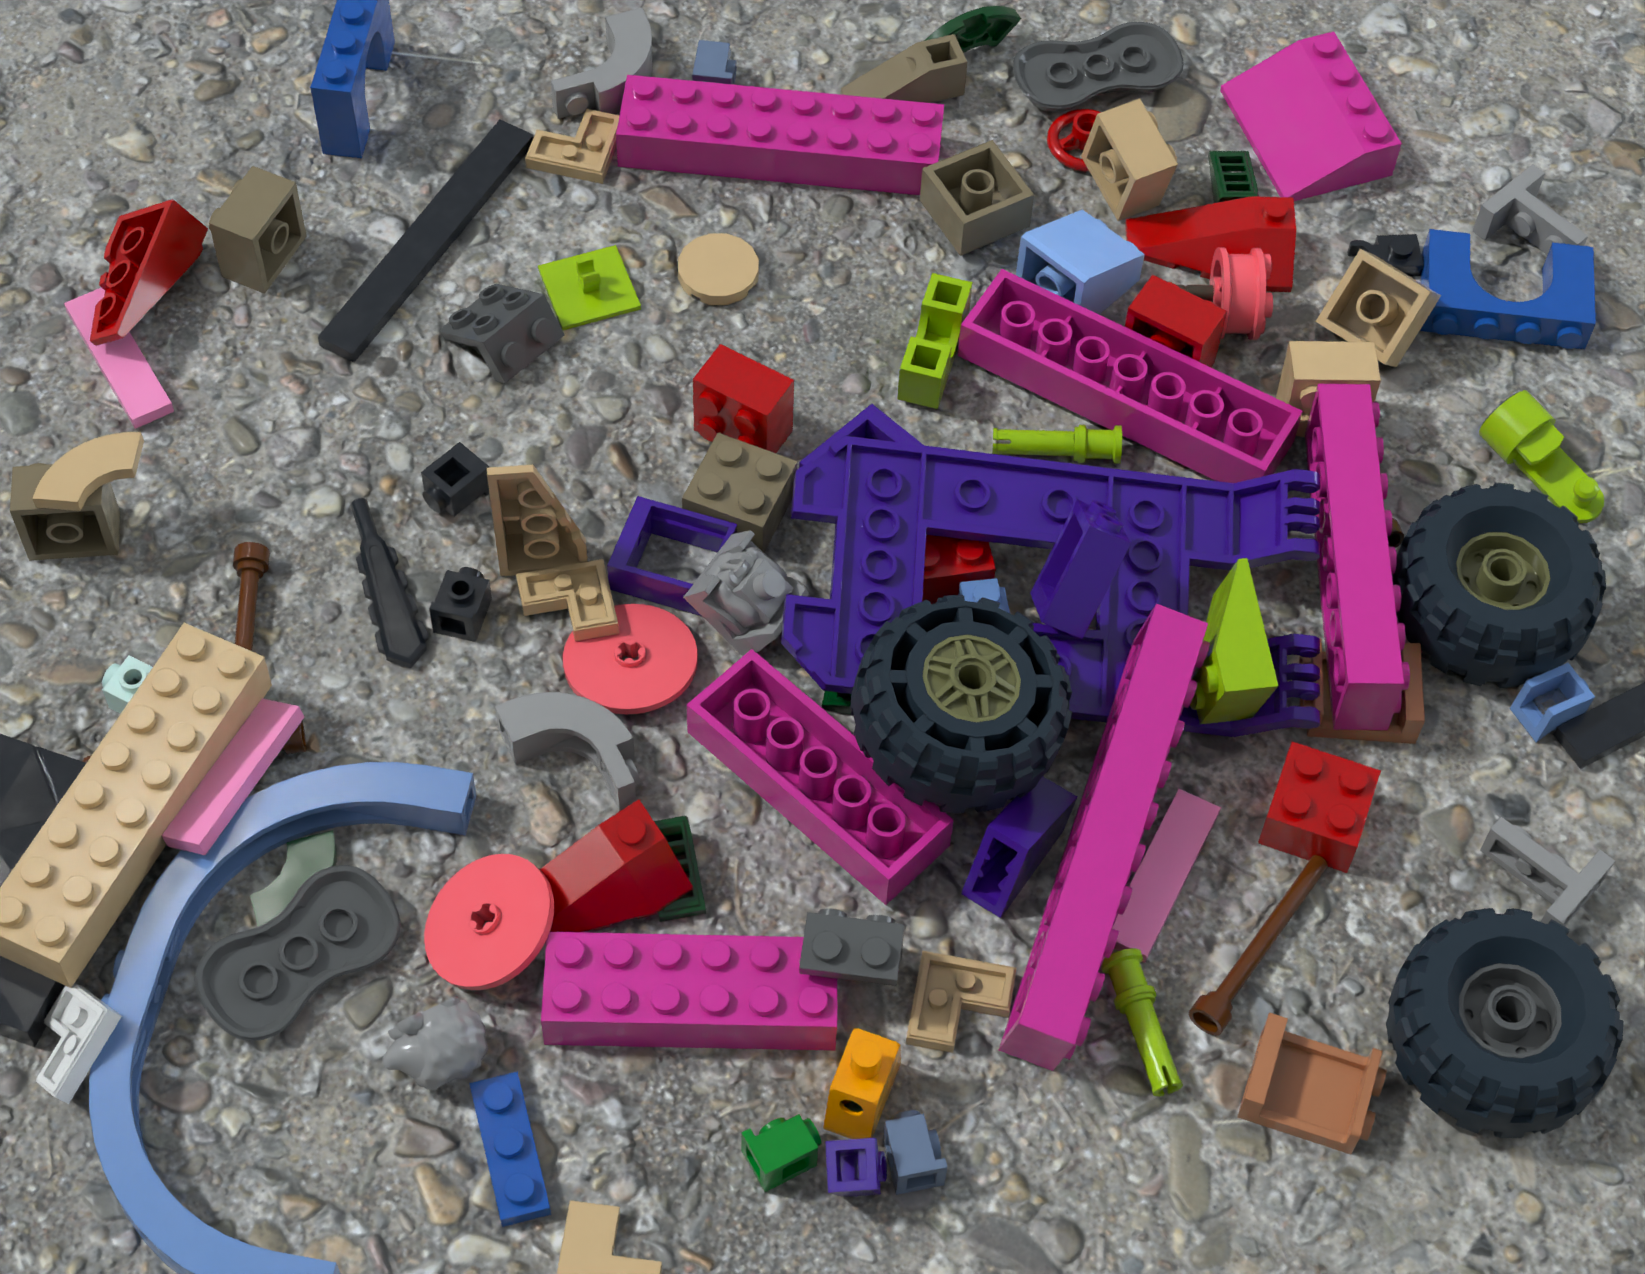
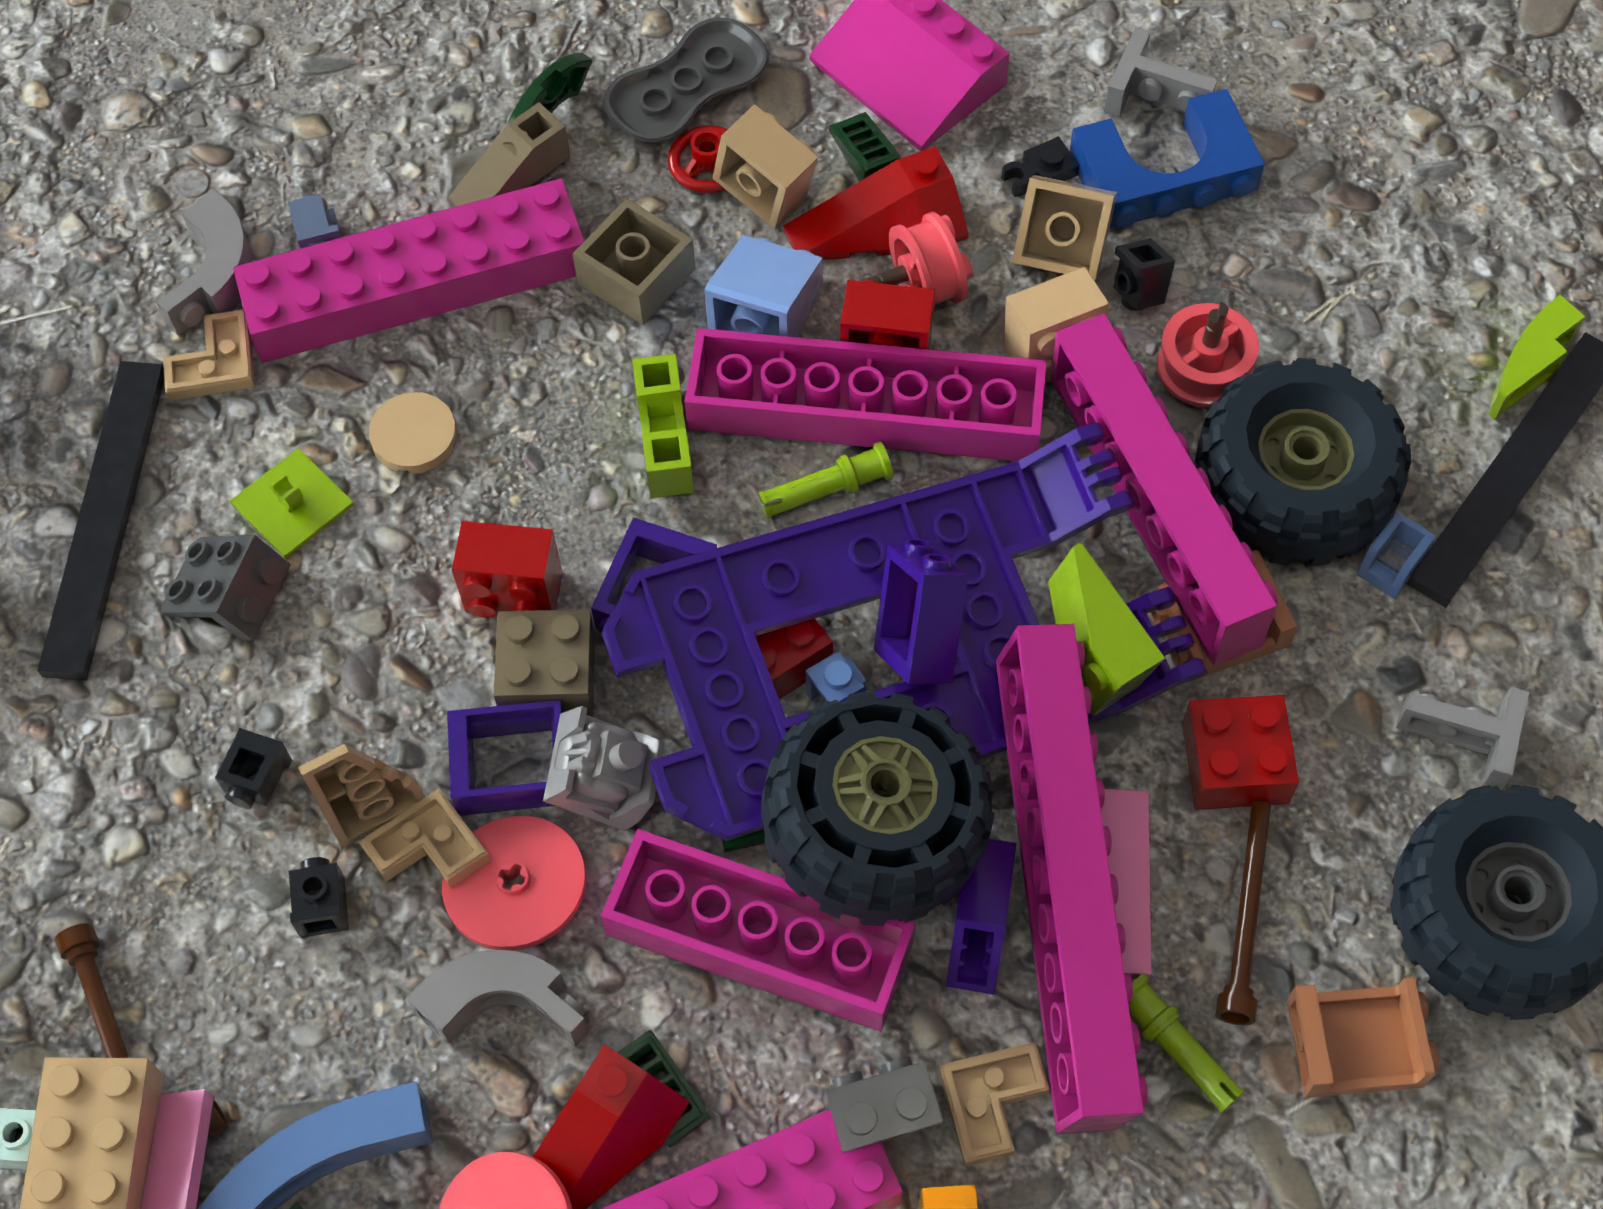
camera: 20 degrees left, 5 degrees up
(392, 610) = (249, 933): black sword -> none
(1433, 376) = (1143, 274): none -> black brick
(1457, 455) = (1205, 352): none -> coral wheel
(1526, 435) = (1276, 317): lime piece -> none

